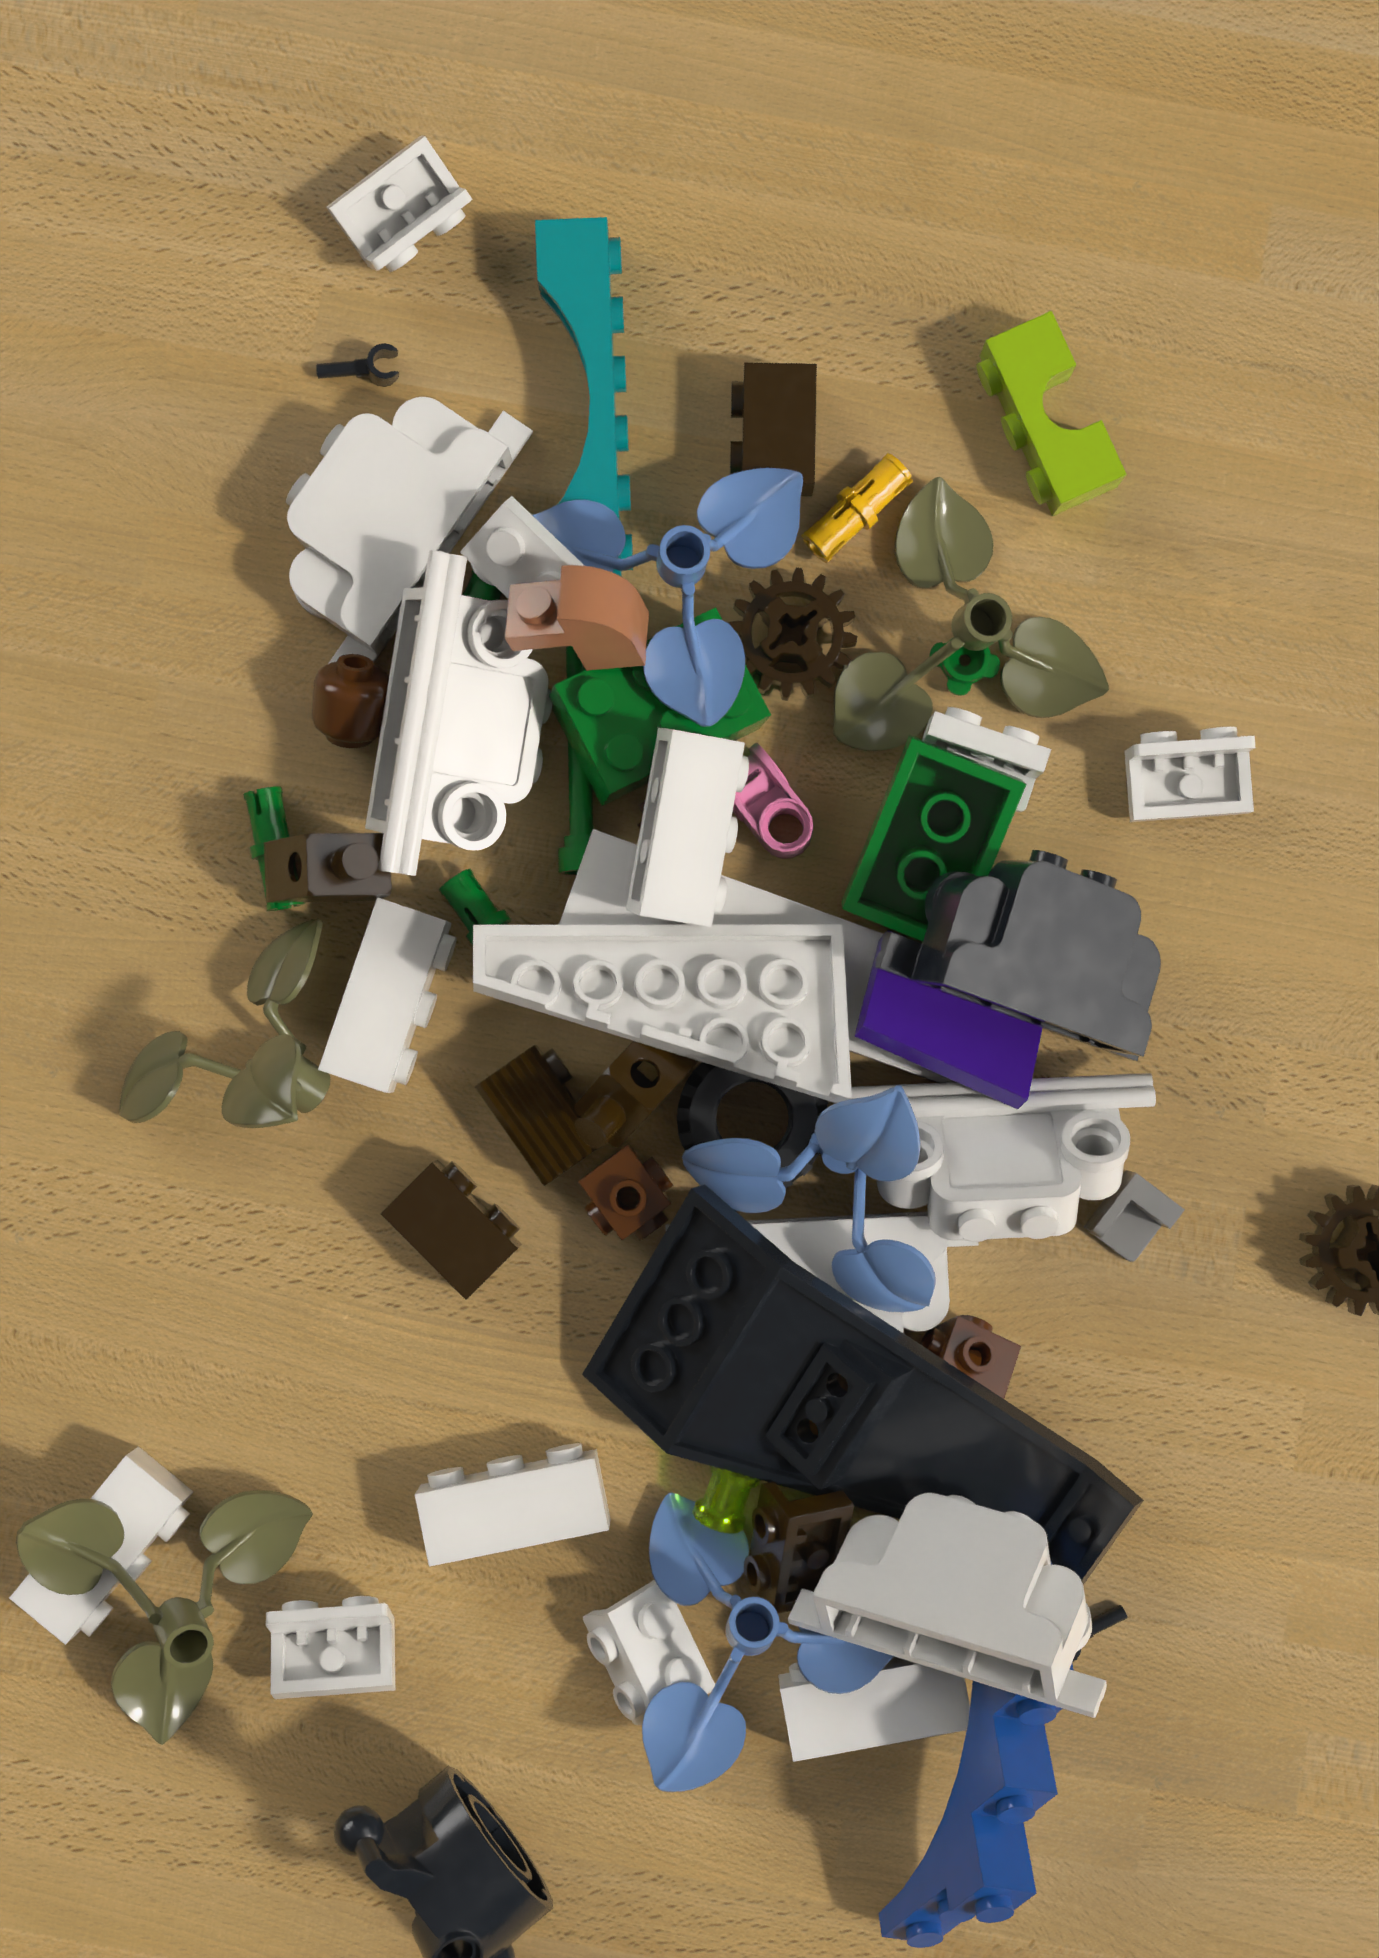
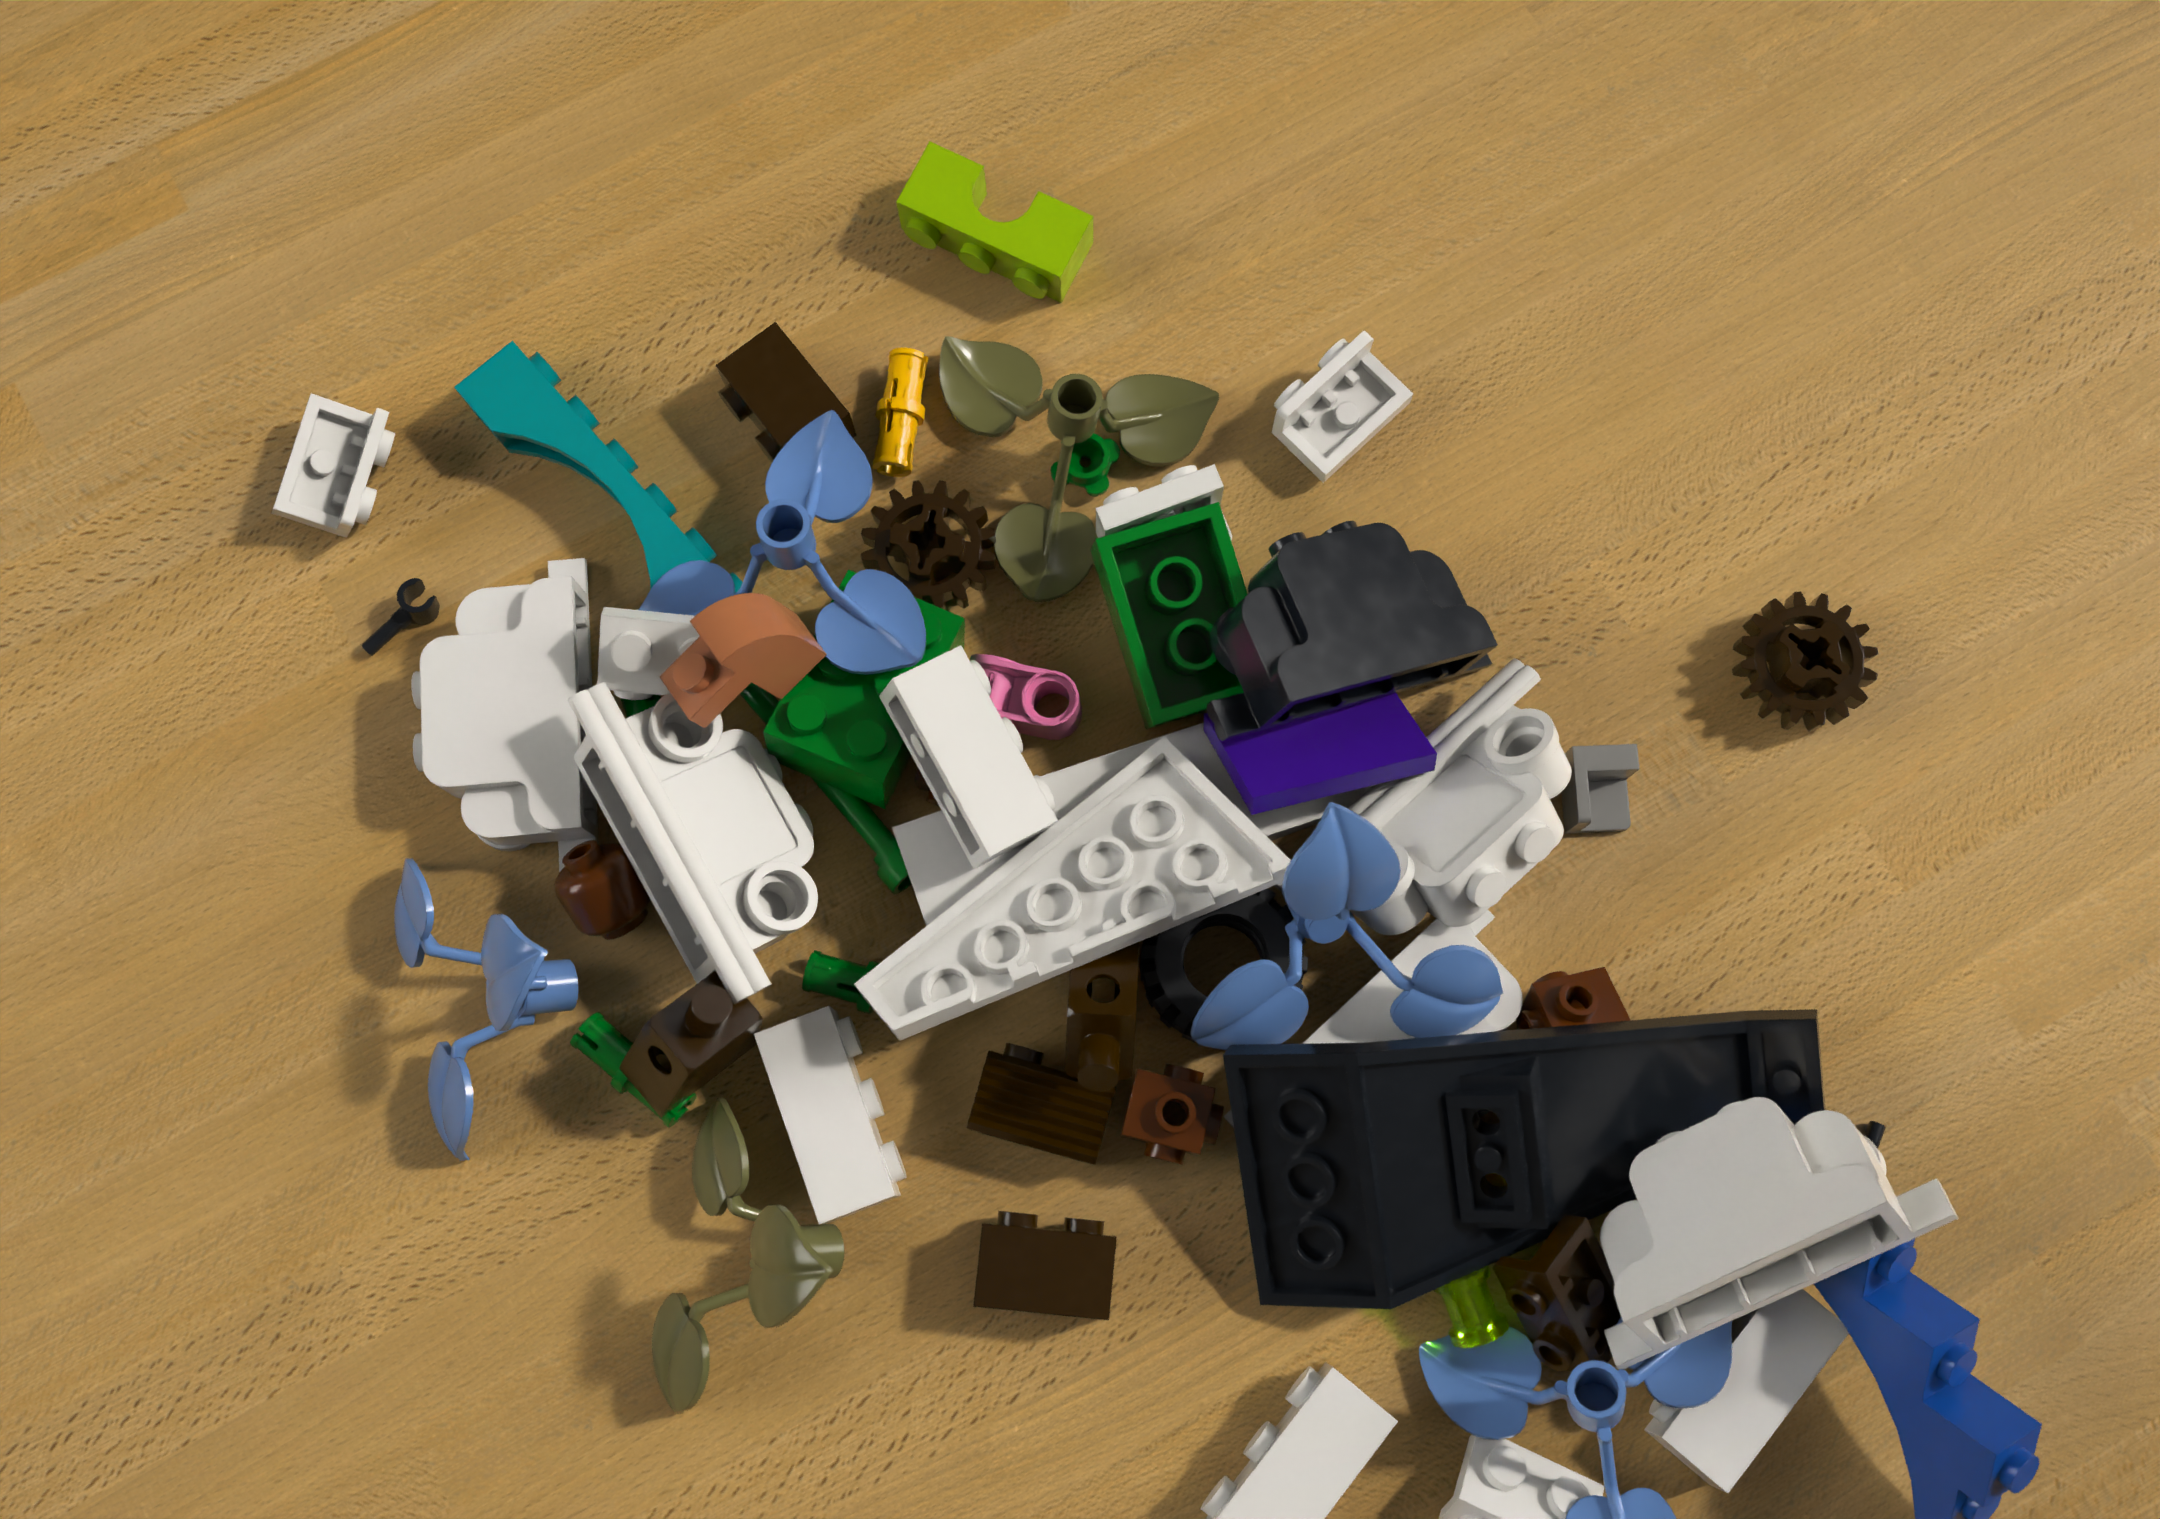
camera: 40 degrees left, 10 degrees down
(237, 724) = (516, 990): none -> medium blue plant

